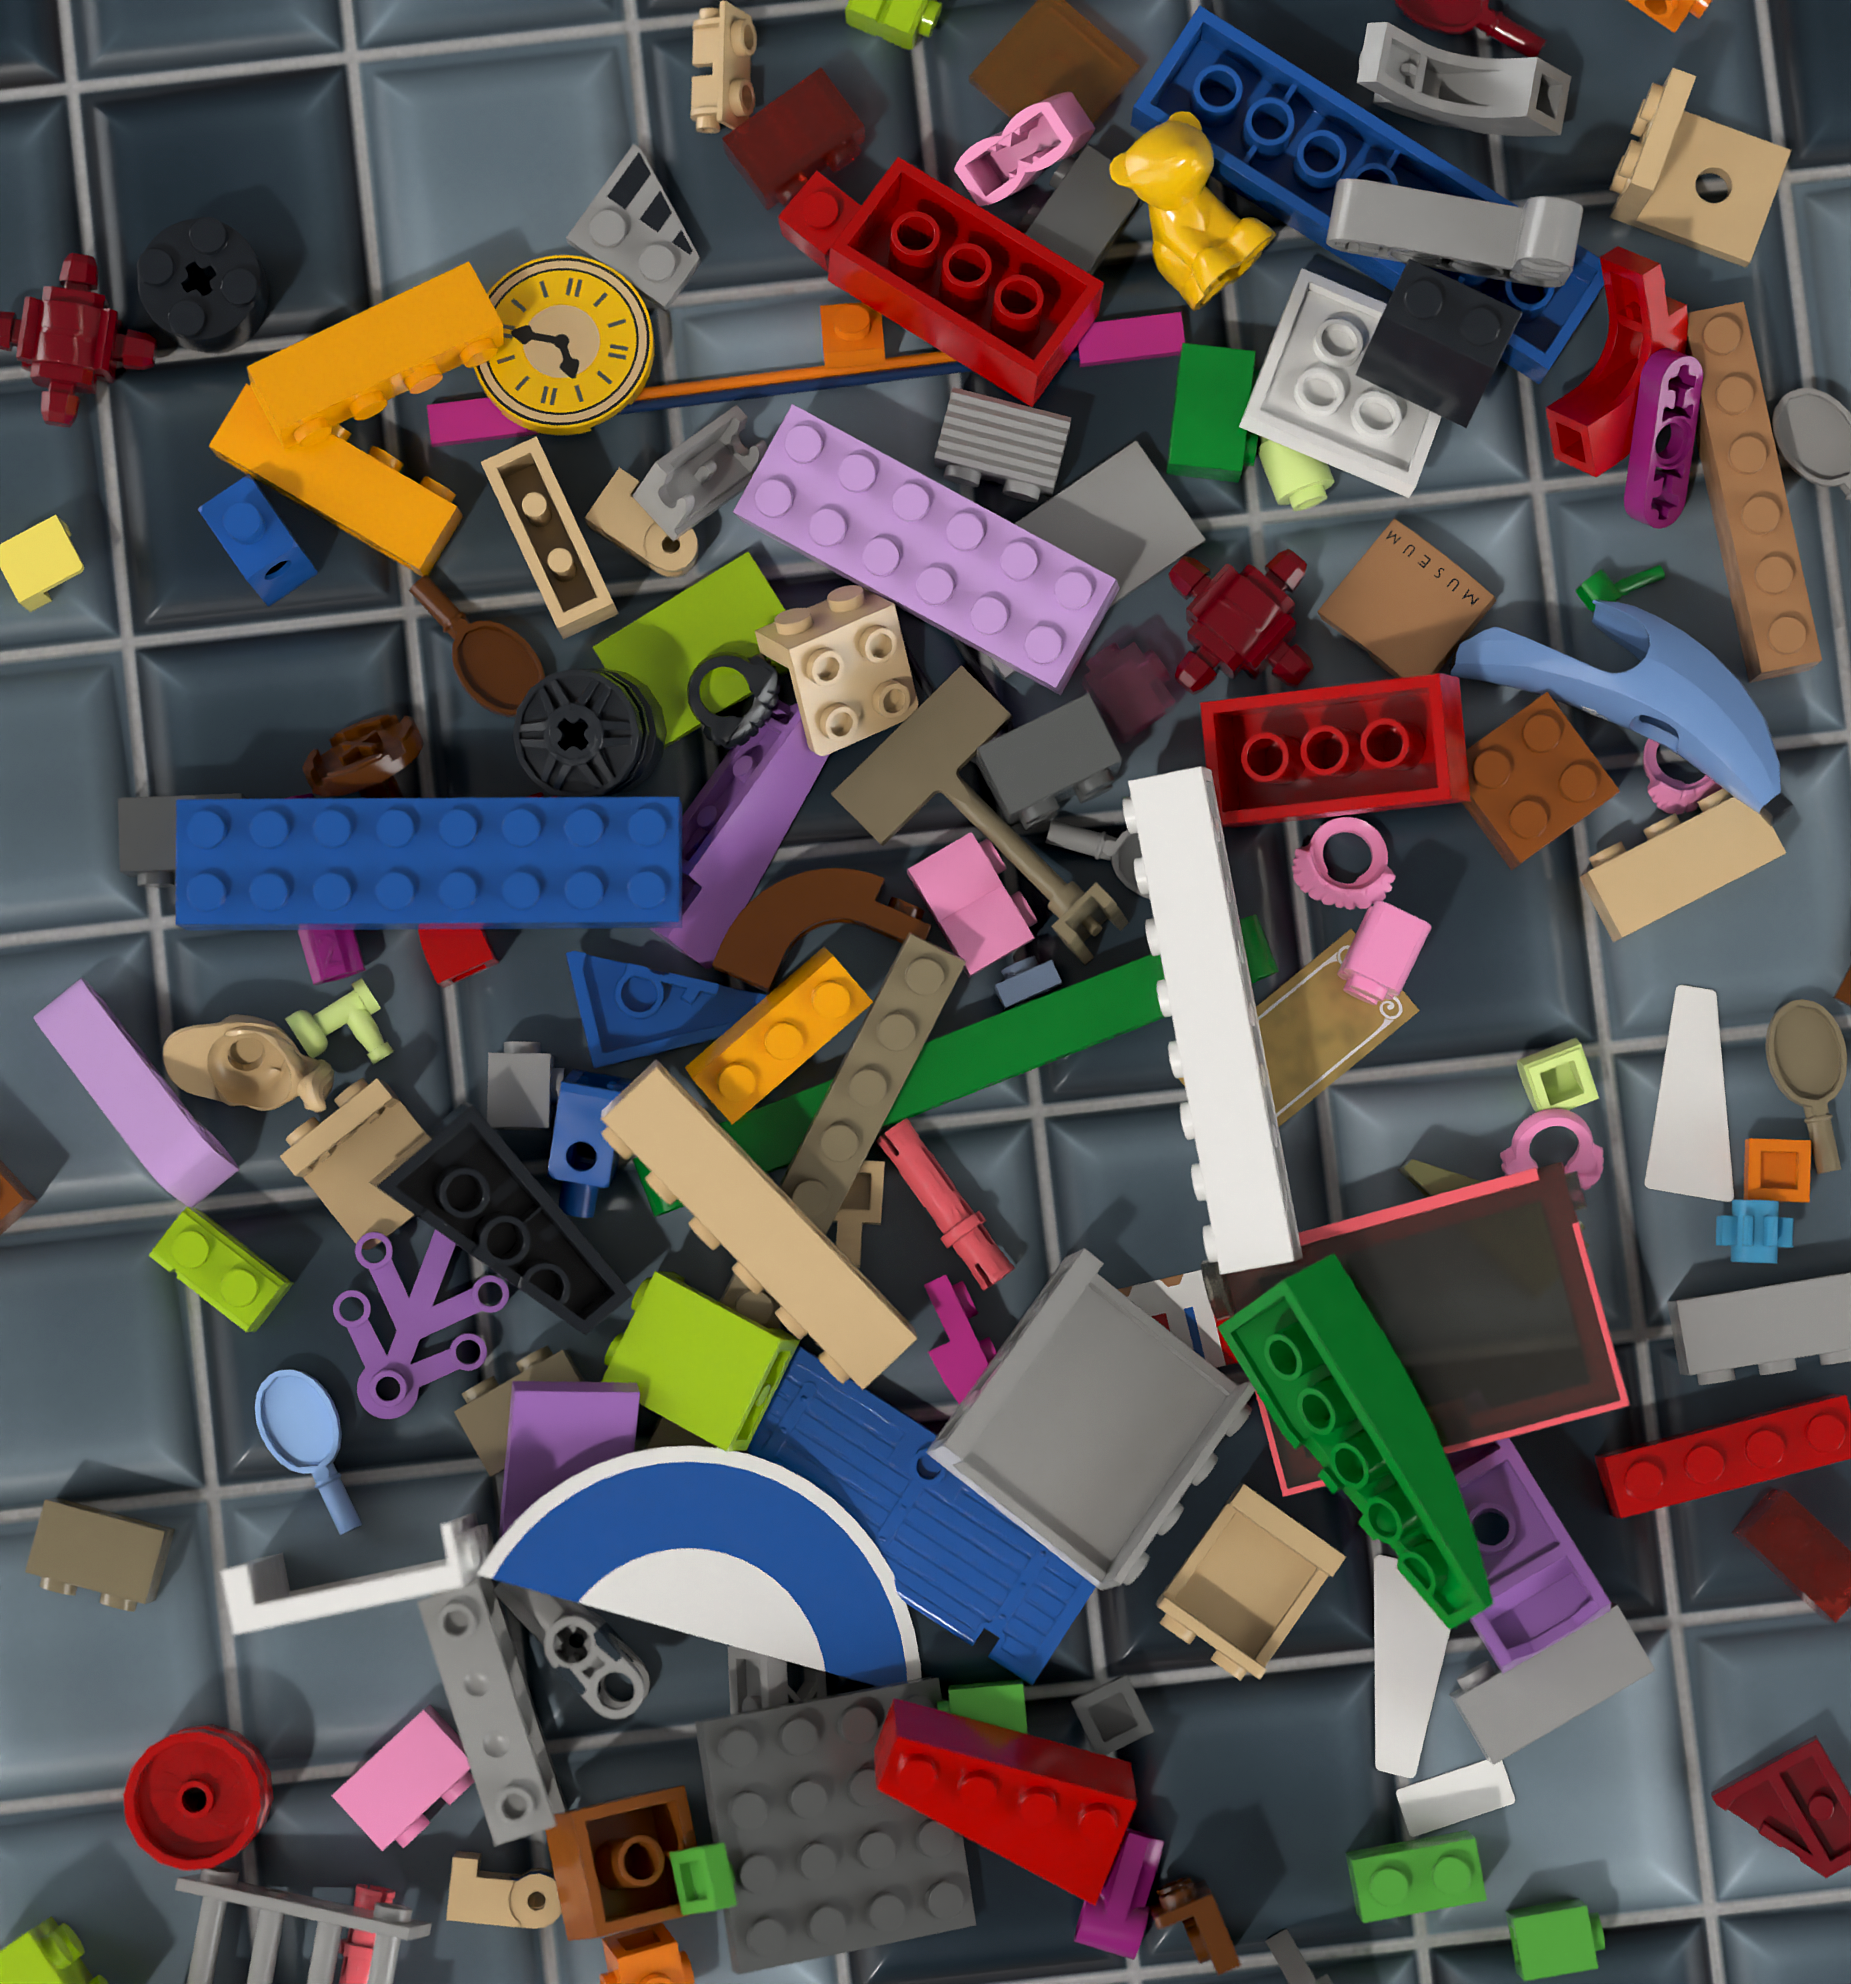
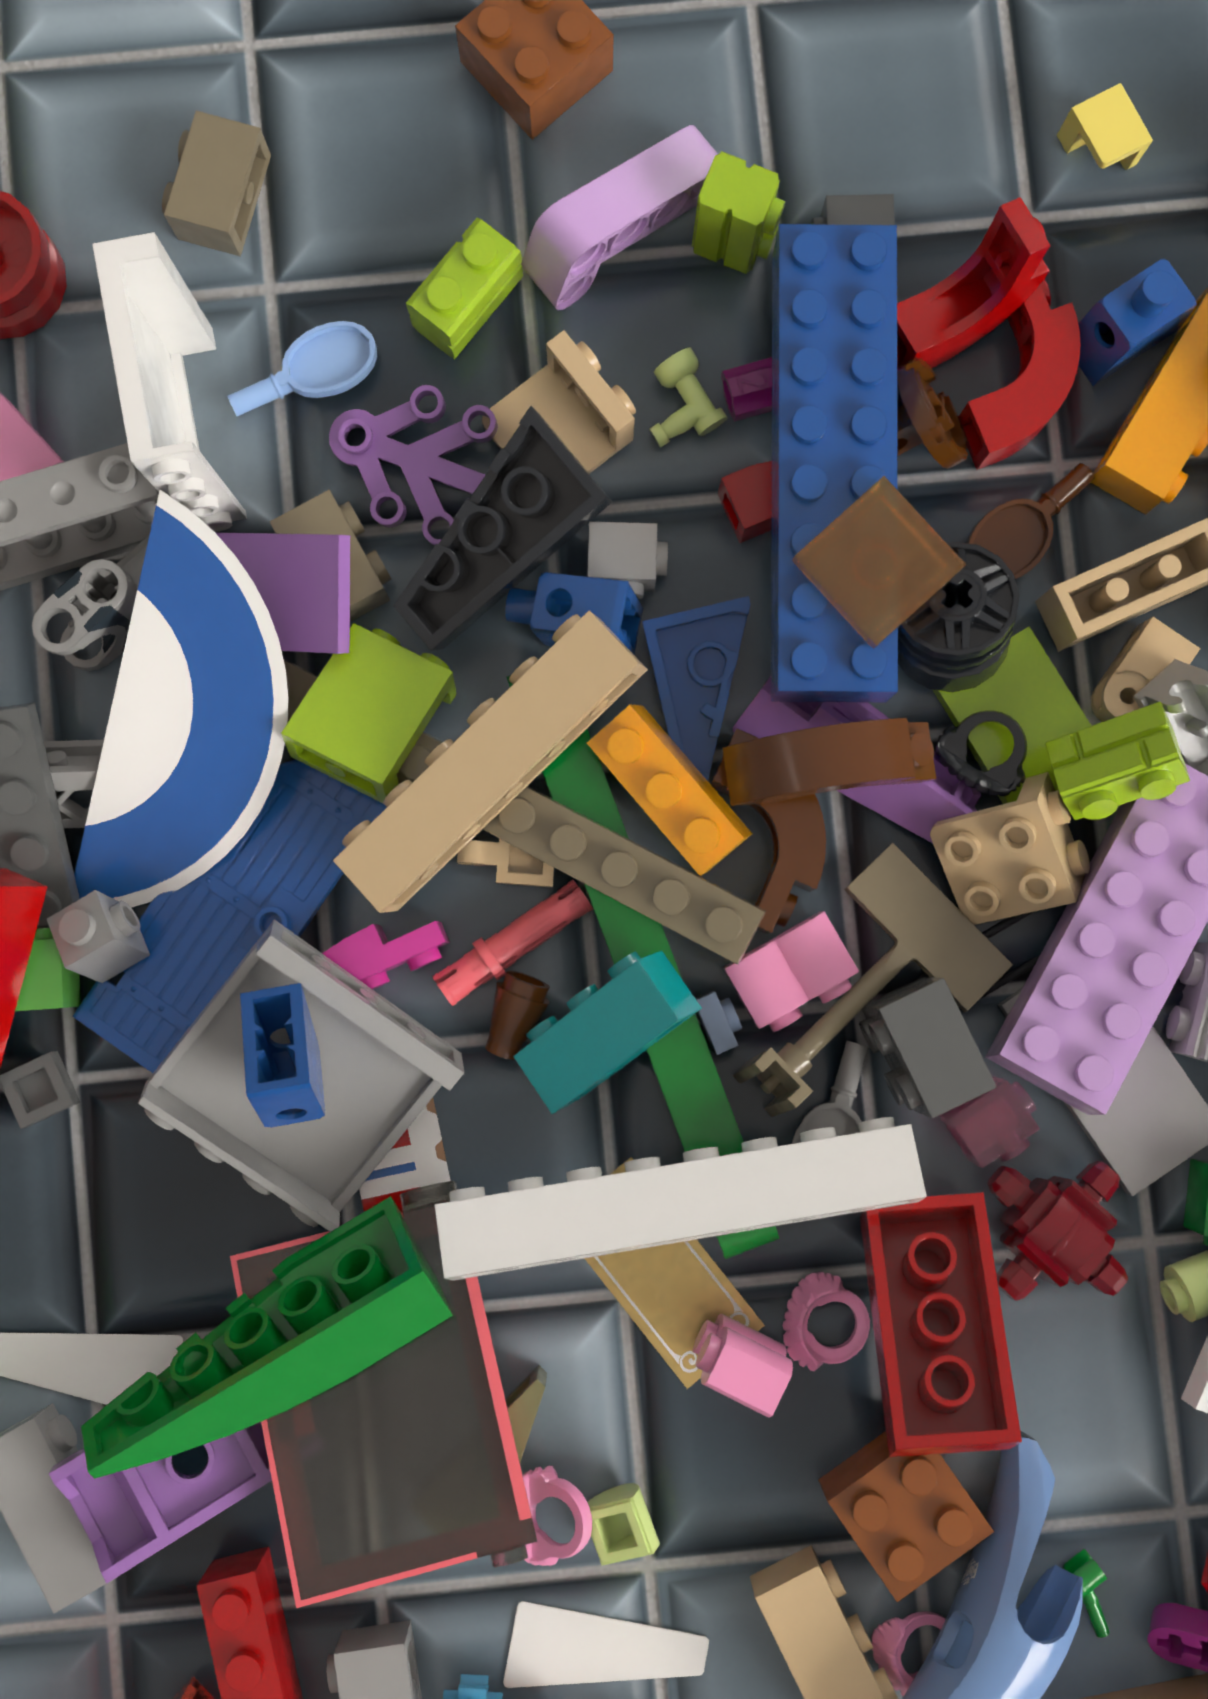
camera: 85 degrees right, 0 degrees up
(142, 968) = (737, 213): none -> lime brick
(238, 718) = (979, 293): none -> red arch
(246, 1065) = (649, 308): tan hair -> none
(313, 628) = (1049, 361): none -> red arch
(546, 818) = (878, 562): none -> clear orange tile
(746, 561) = (1117, 762): none -> lime brick
(750, 866) = (829, 760): none -> reddish brown arch
(945, 1649) = (98, 936): none -> light grey brick
(1019, 1199) = (516, 1010): none -> reddish brown cone
(1037, 1101) = (605, 1029): none -> teal brick
(1086, 1427) = (281, 1078): none -> blue torso
(1247, 1583) = (156, 1217): tan panel -> none
(1406, 604) = (1075, 1388): medium nougat slope -> none

